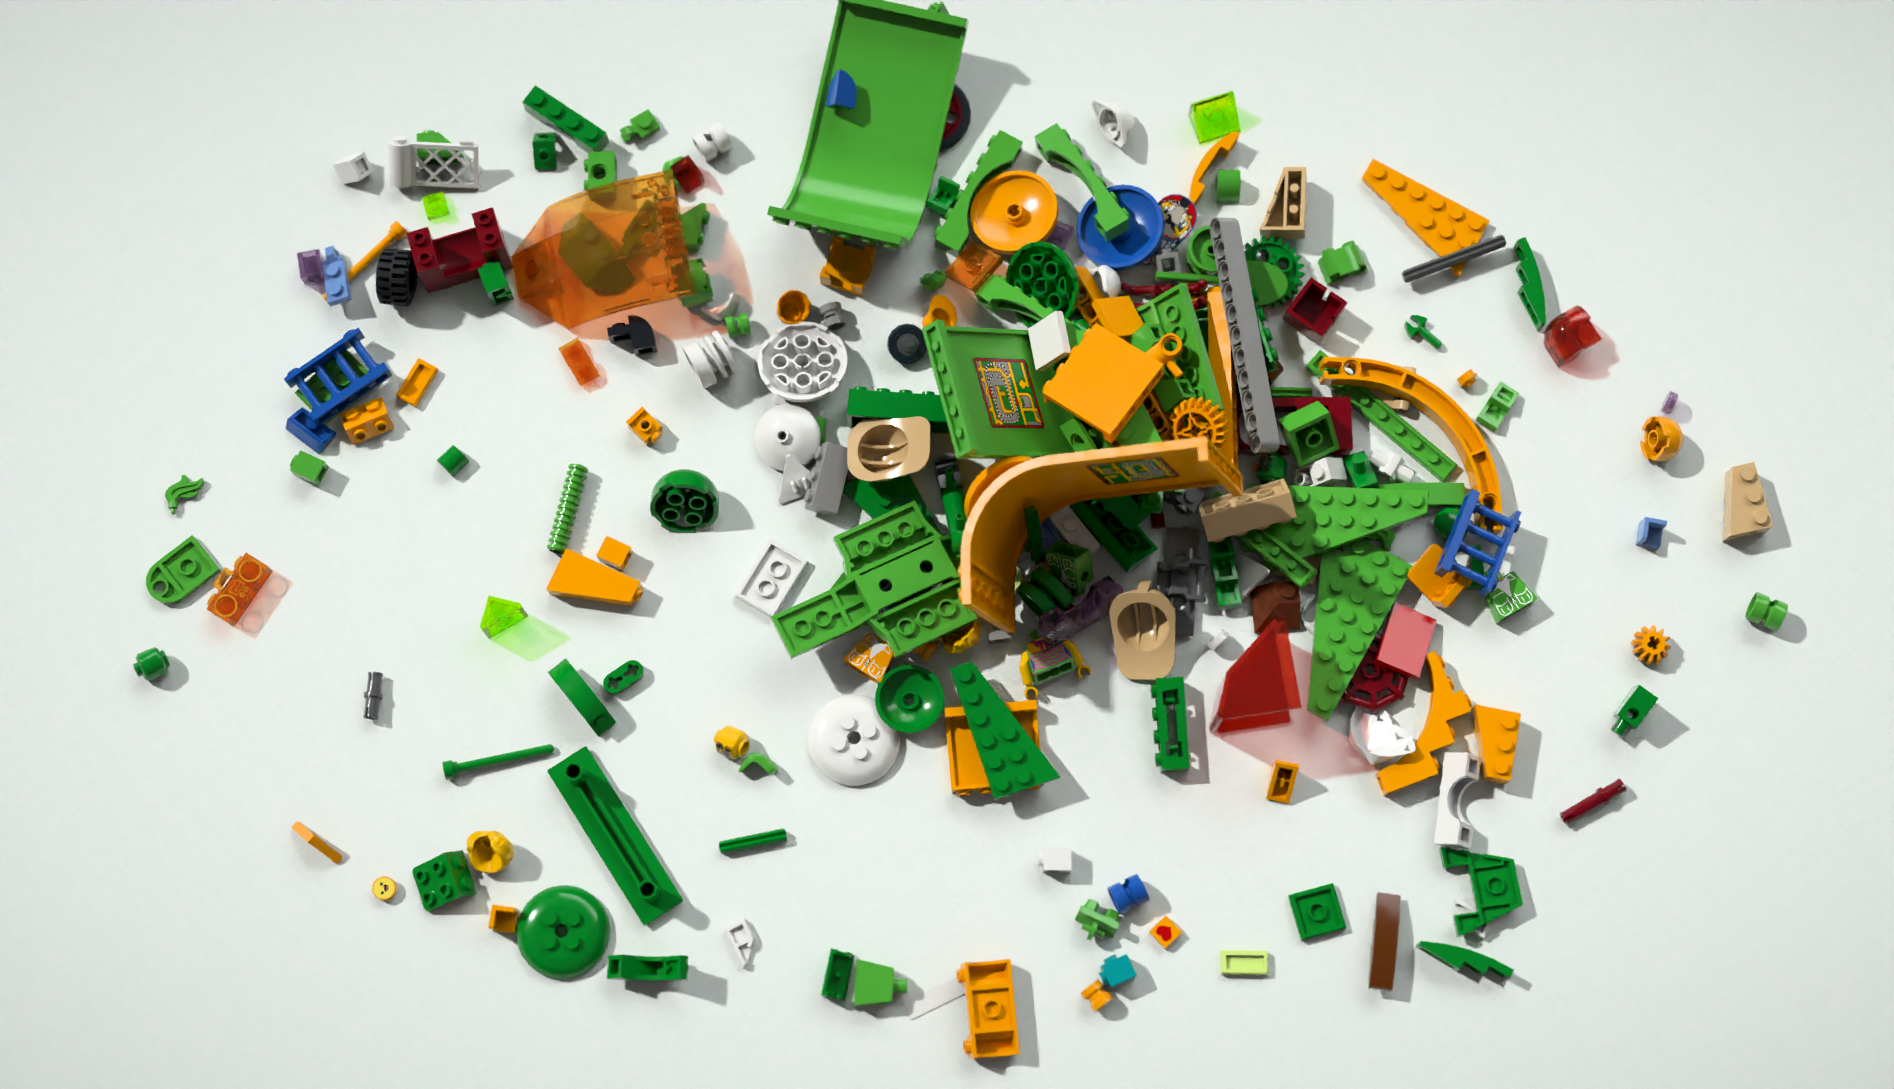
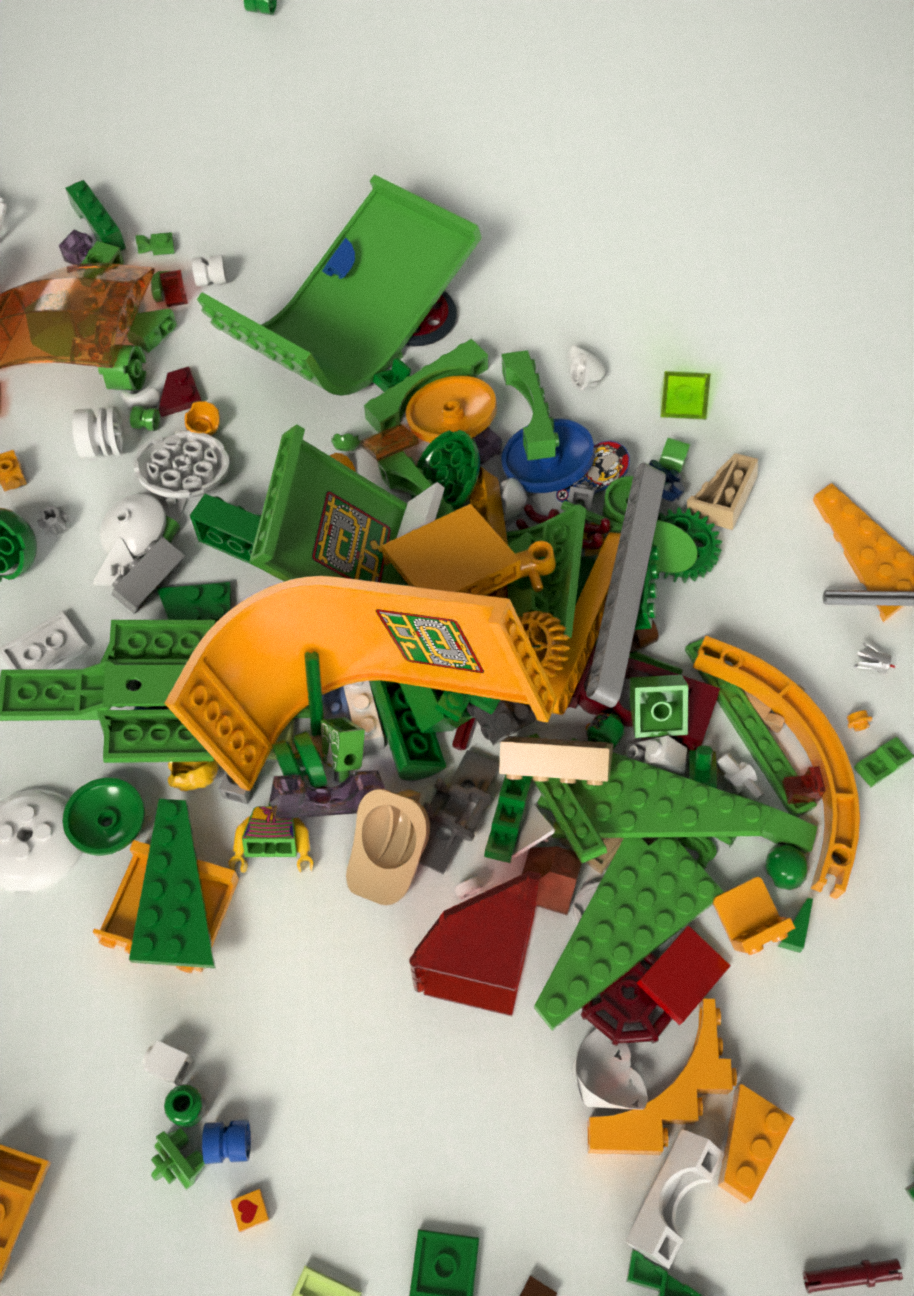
camera: 25 degrees right, 15 degrees down
(544, 151) = (61, 231): green bracket -> none
(566, 163) = (75, 247): none -> clear purple brick
(638, 330) = (50, 395): black brick -> none
(709, 453) = (53, 520): none -> light grey gear
(752, 284) = (178, 392): none -> dark red wing
(832, 315) = (236, 439): light grey wheel -> none
(848, 267) = (273, 406): light orange panel -> none
(870, 657) = (87, 759): light orange torso -> none
(888, 448) = (209, 560): tan piece -> none
(926, 650) = (153, 773): light orange wheel -> none
(1084, 874) = (182, 1096): none -> green head
(1097, 997) = (127, 1255): light orange wheel -> none
(1116, 970) = (166, 1234): teal brick -> none
(1118, 315) = (505, 519): light orange tile -> none
(1168, 687) = (354, 1005): green brick -> none
(1223, 148) = (680, 423): light orange slope -> none
(1231, 209) = (673, 486): none -> dark blue plate
(1282, 781) = (470, 1081): light orange slope -> none
(1313, 314) = (709, 594): dark red piece -> none
(1341, 262) = (763, 563): bright green cylinder -> none
(1421, 330) = (827, 648): green bar -> none
(1443, 455) = (804, 788): none -> clear red panel
(1464, 525) = (783, 884): blue fence -> none
(1468, 317) = (877, 660): none -> flat silver piece
(1508, 597) = (825, 969): bright green torso -> none

